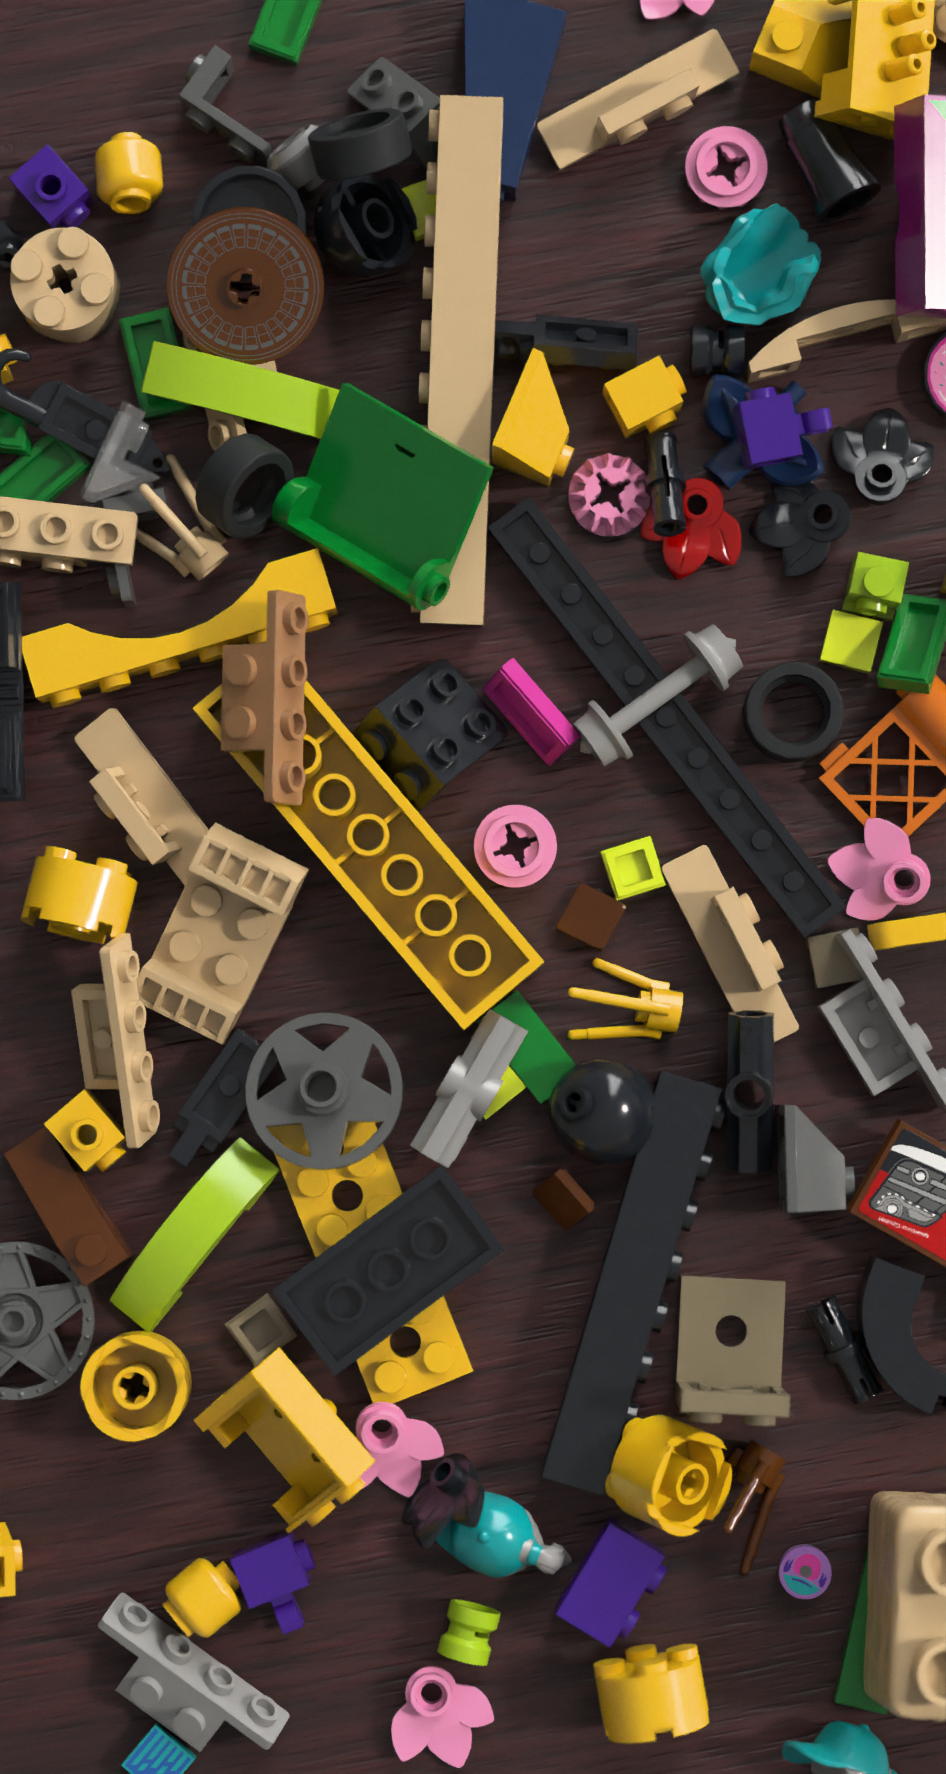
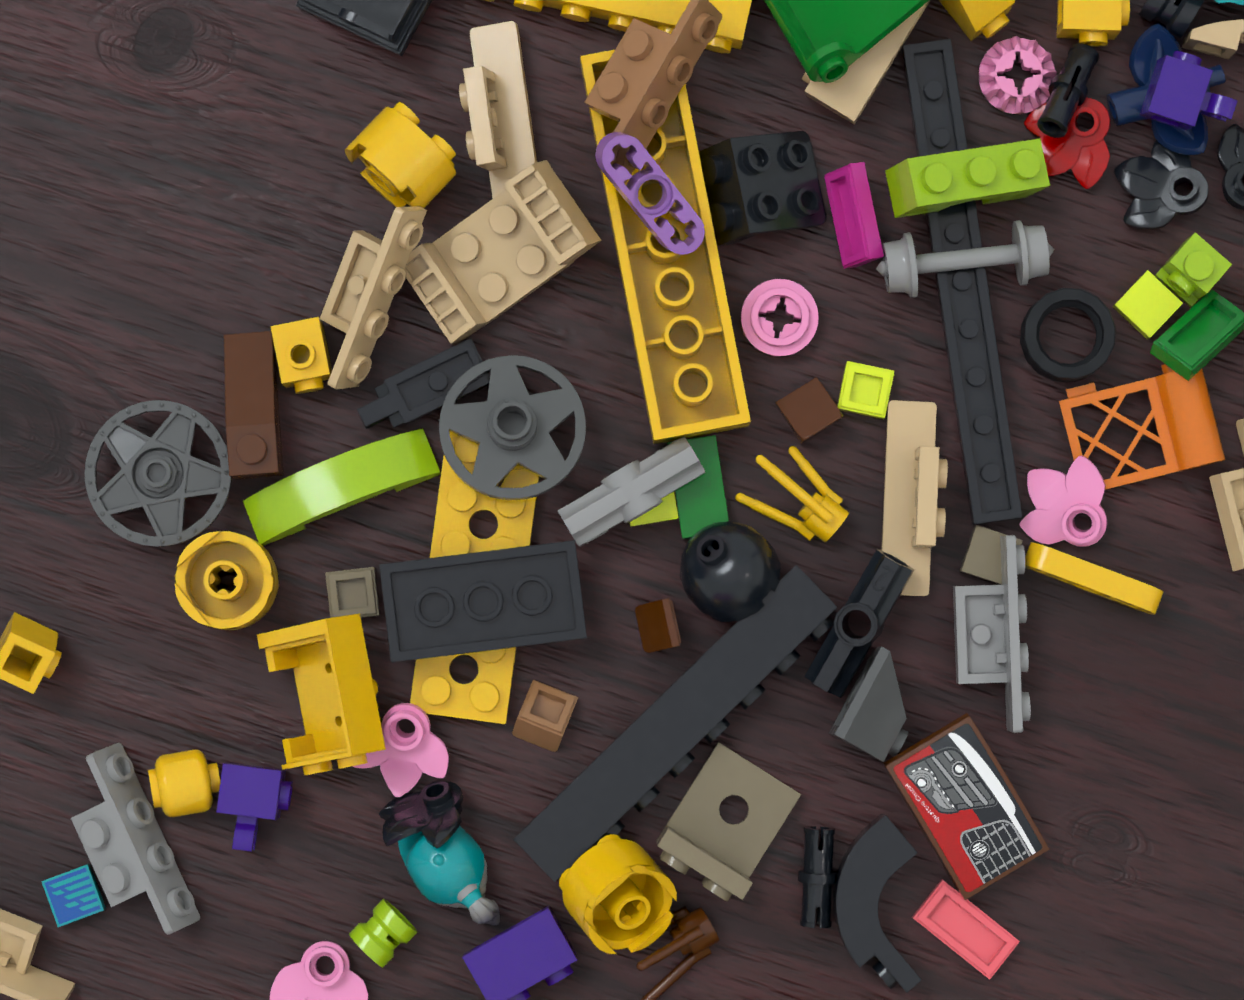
camera: 25 degrees right, 0 degrees up
(370, 802) = (617, 174): none -> medium lavender beam
(505, 1342) = (544, 716): none -> medium nougat slope
(617, 618) = (967, 175): none -> lime arch

